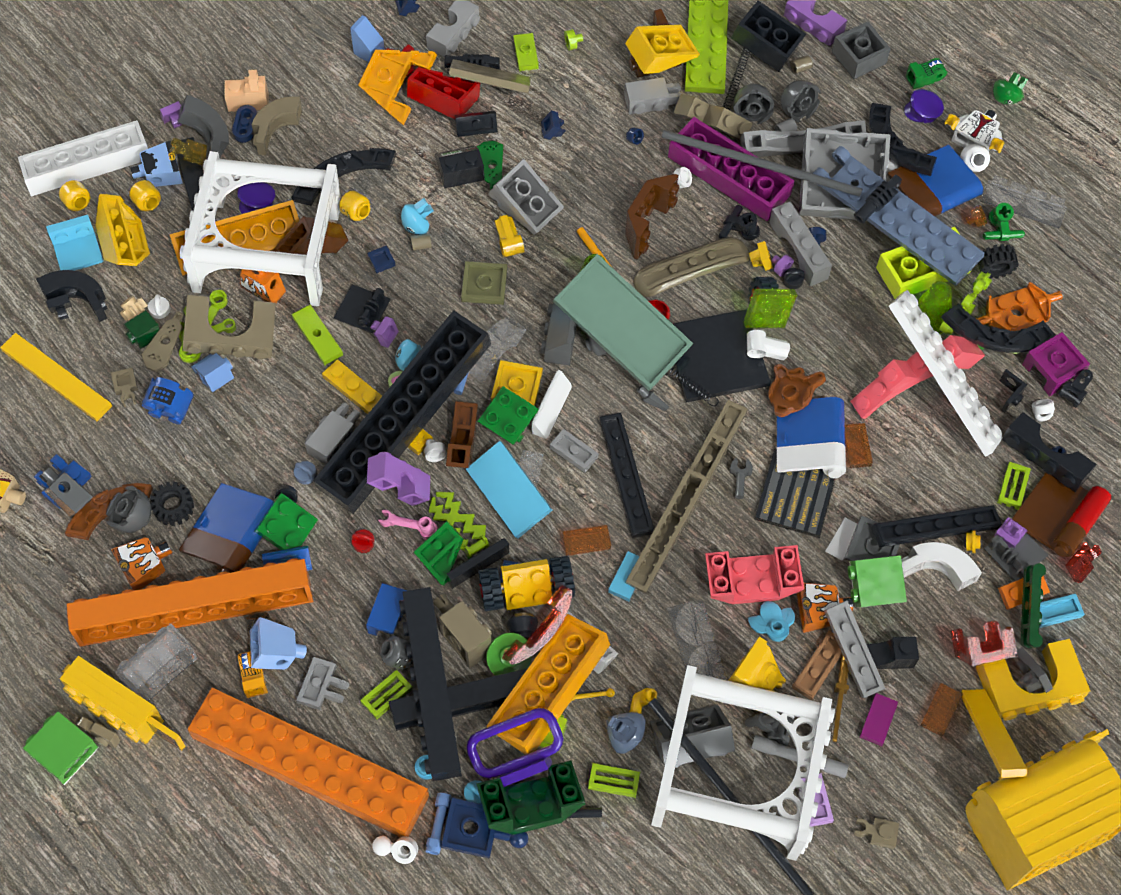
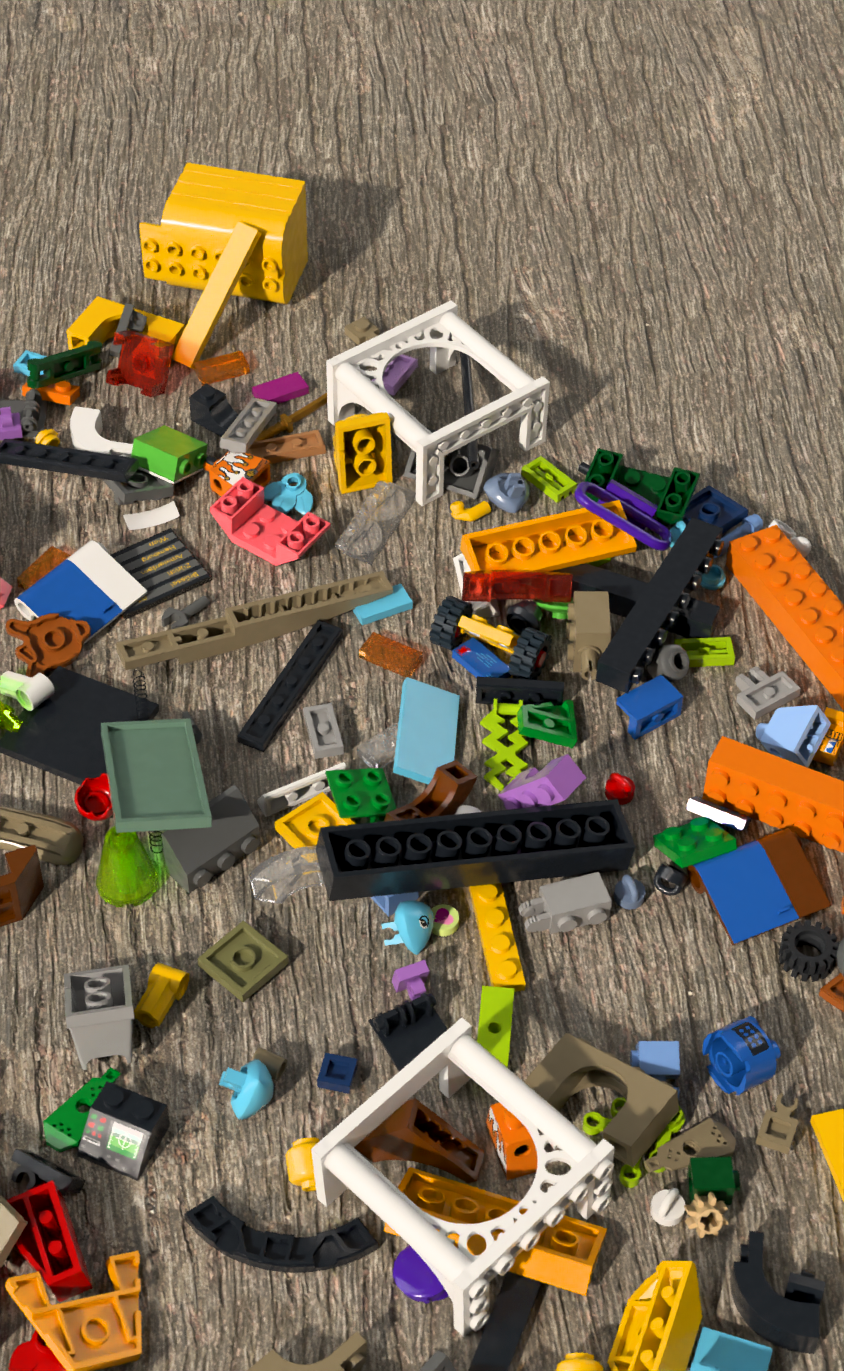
camera: 140 degrees left, 15 degrees down
(424, 525) = (543, 753): bright pink brick -> none
(590, 243) = (79, 915): light orange bar -> none

